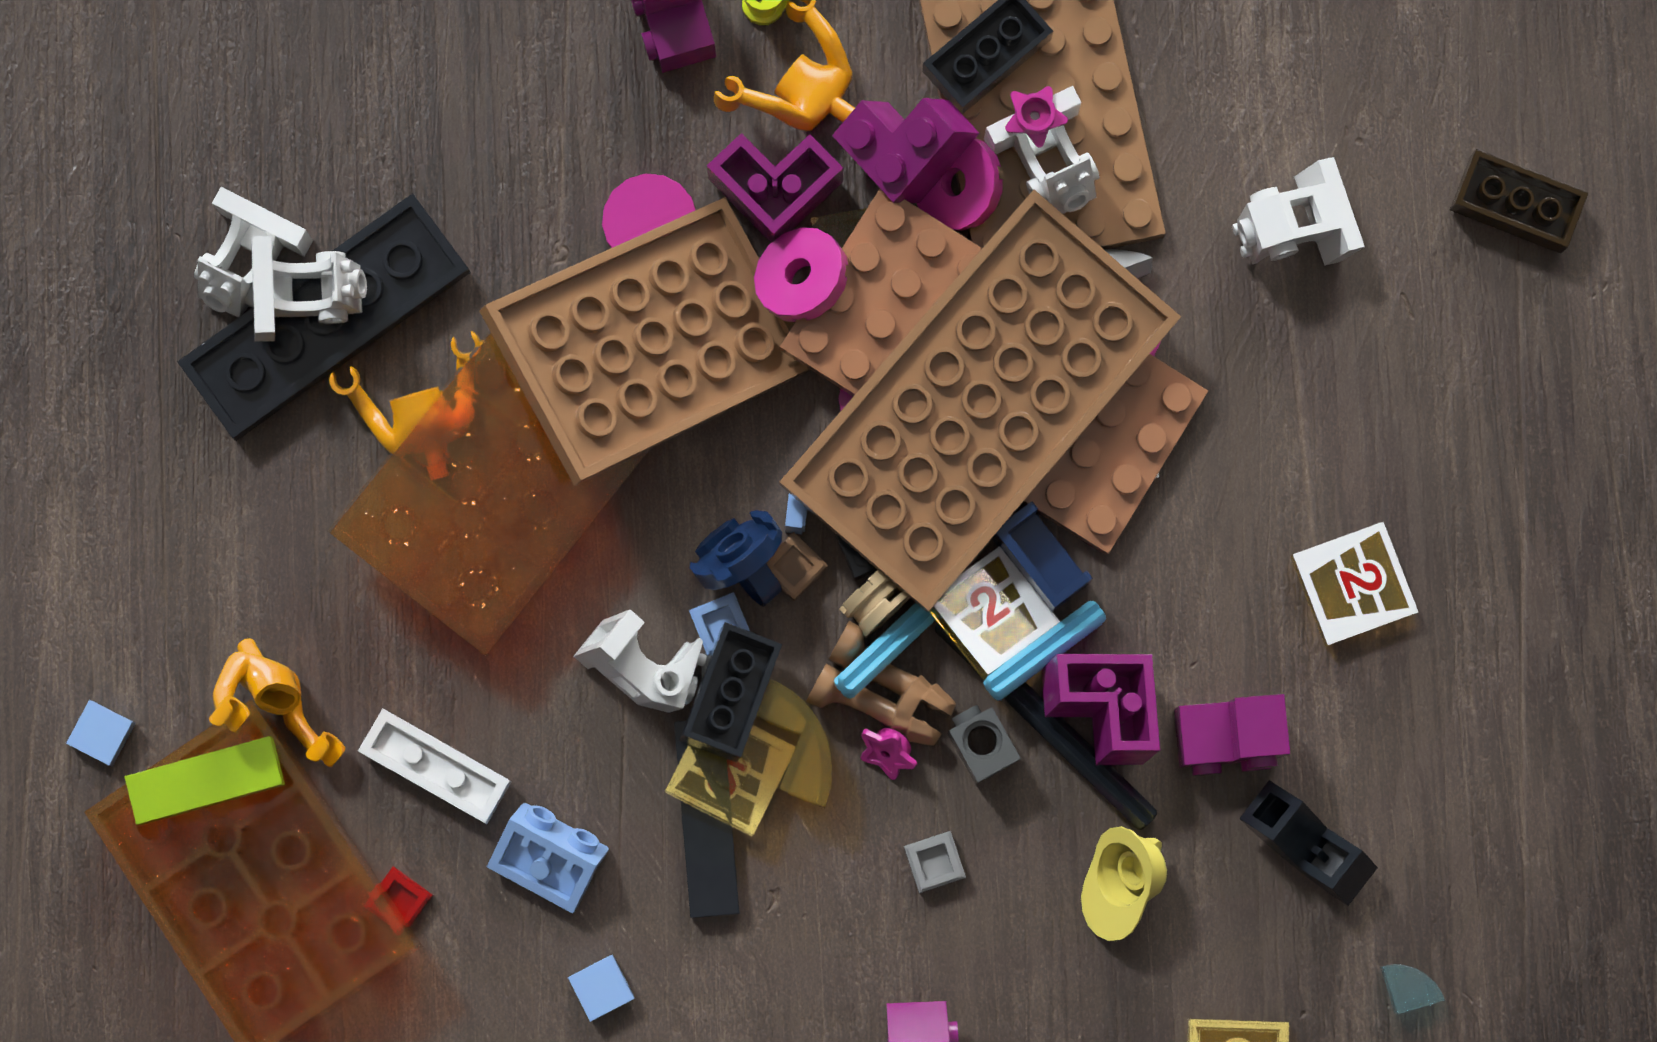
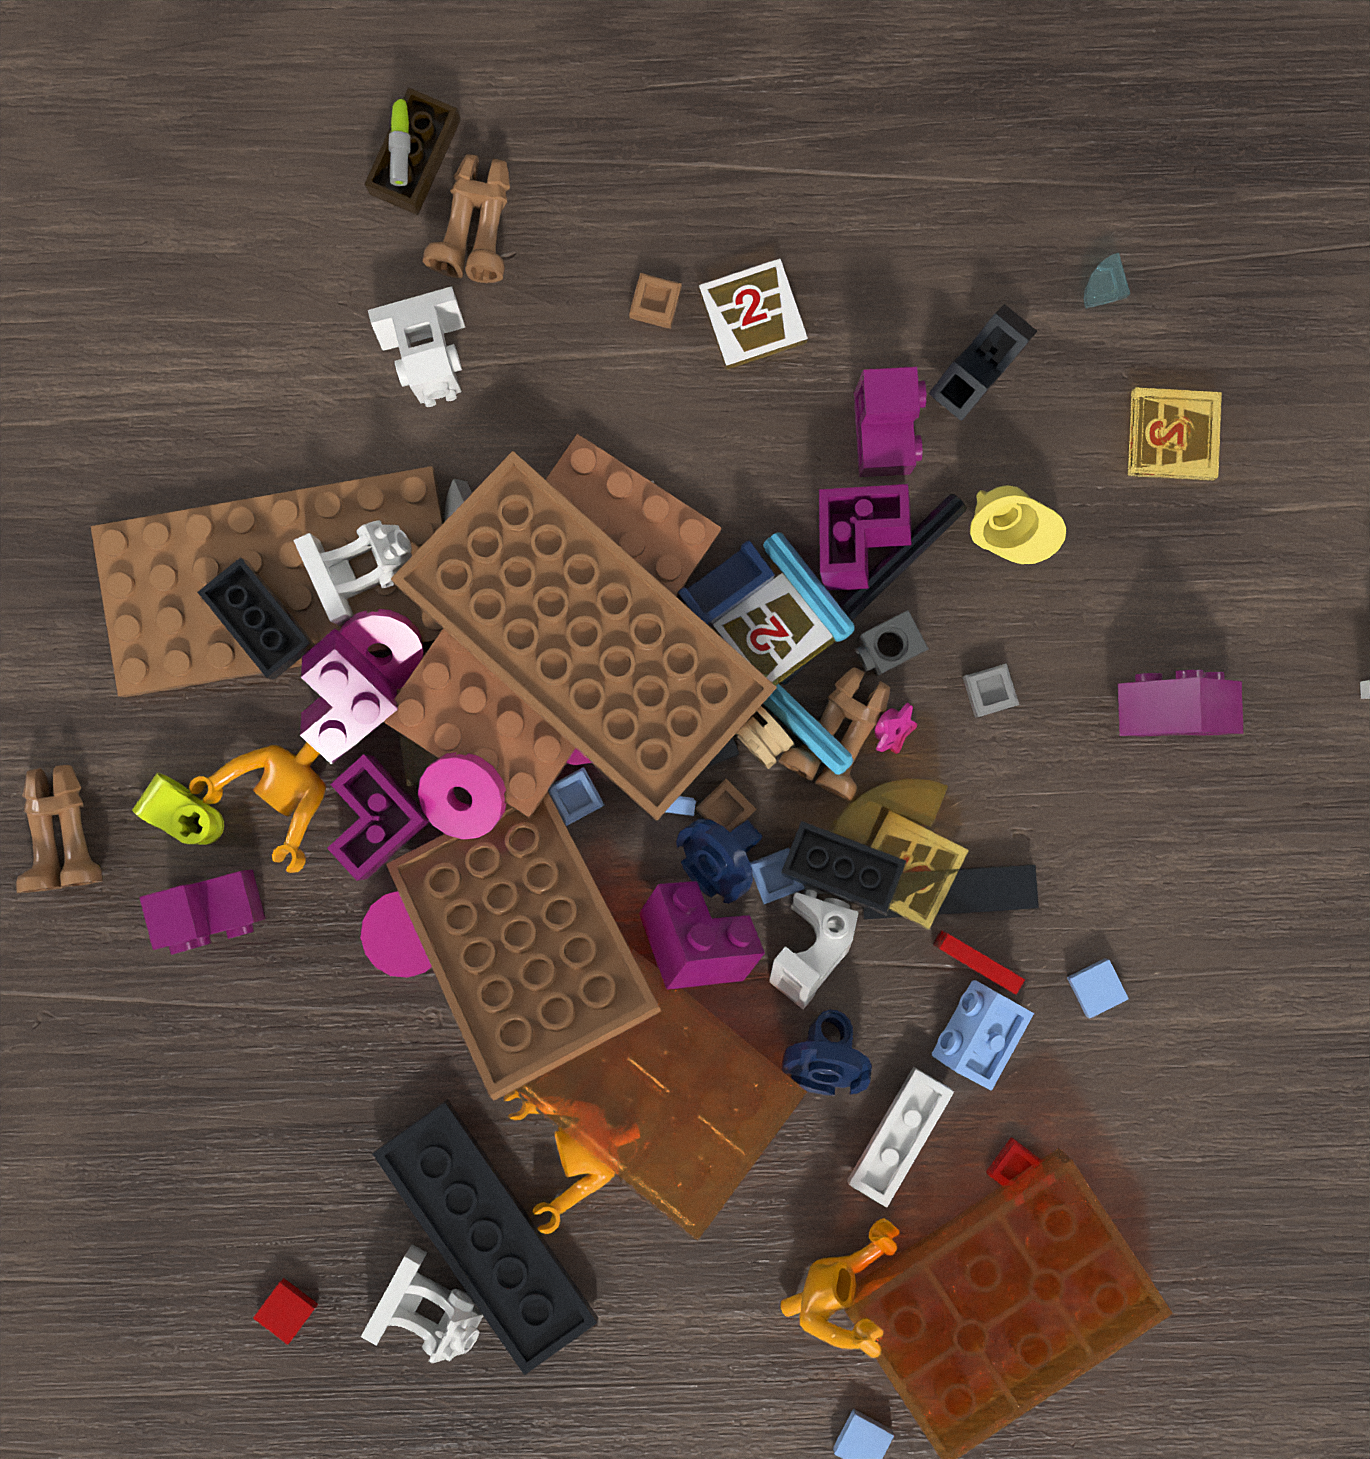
camera: 90 degrees left, 5 degrees up
(204, 780) = (921, 1355): lime tile -> none
(243, 108) = (285, 1311): none -> red tile
(341, 286) = (460, 1287): white tile -> none
(513, 679) = (824, 1064): none -> dark blue tile
(629, 848) = (978, 962): none -> red tile
(643, 526) = (691, 944): none -> magenta brick
(803, 401) = (575, 796): none -> light blue tile
(1035, 102) = (312, 566): dark pink plate -> none
(1364, 475) = (655, 300): none -> medium nougat tile
(1404, 246) = (449, 256): none -> medium nougat piece
(1522, 185) = (399, 143): none -> light grey piece

